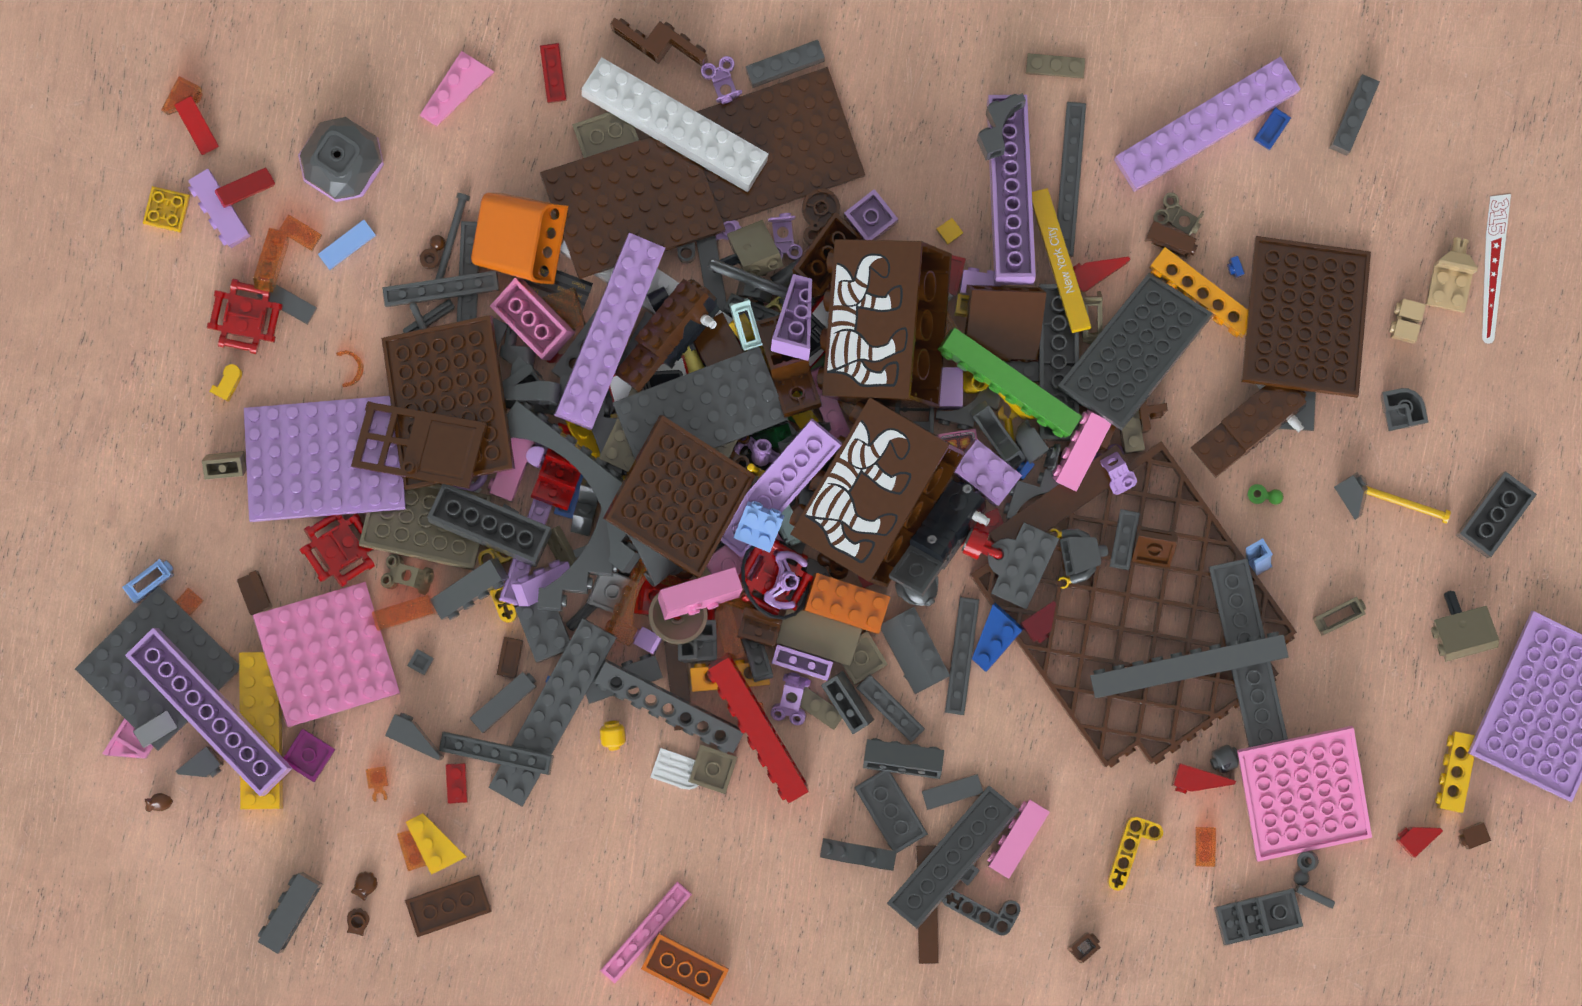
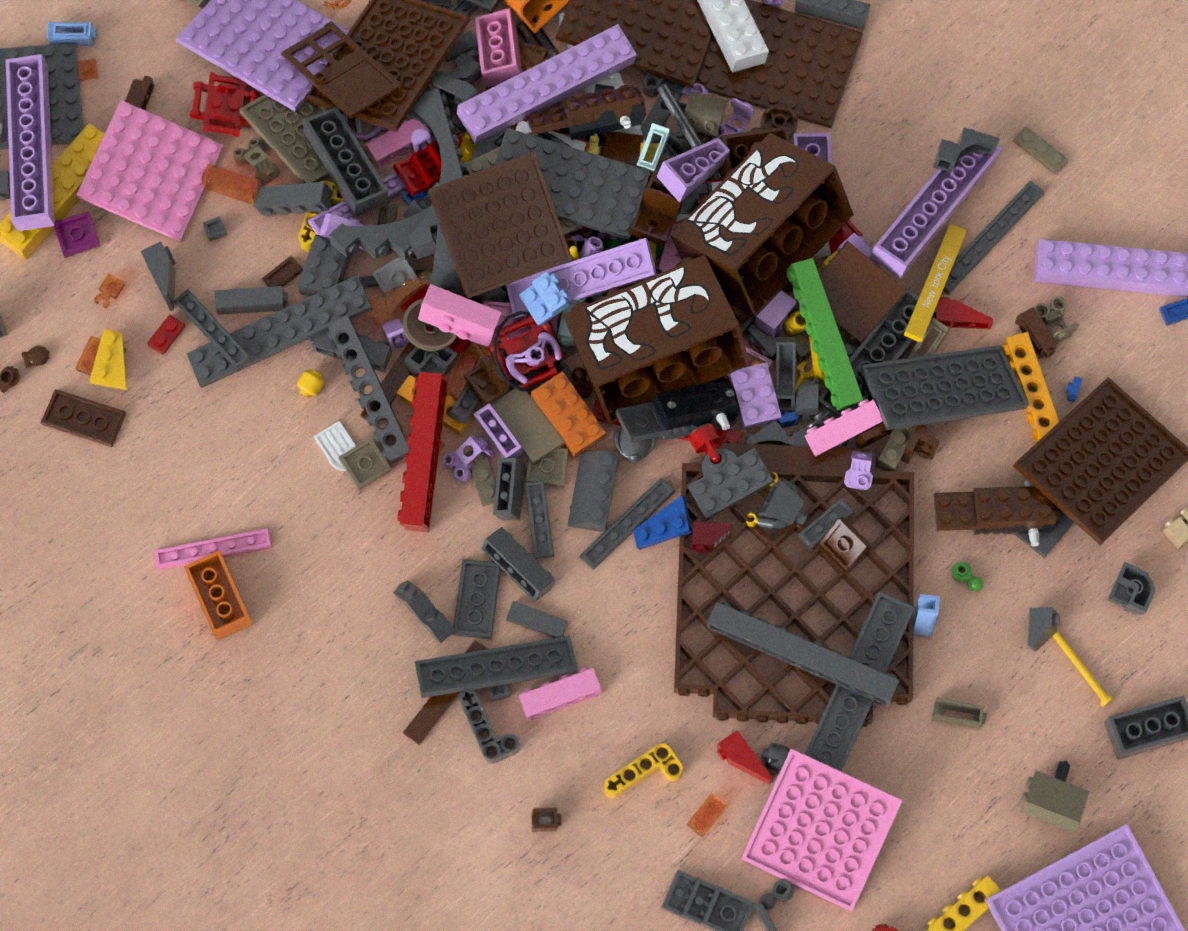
camera: 40 degrees right, 15 degrees down
(949, 231) = (865, 209): yellow tile -> none

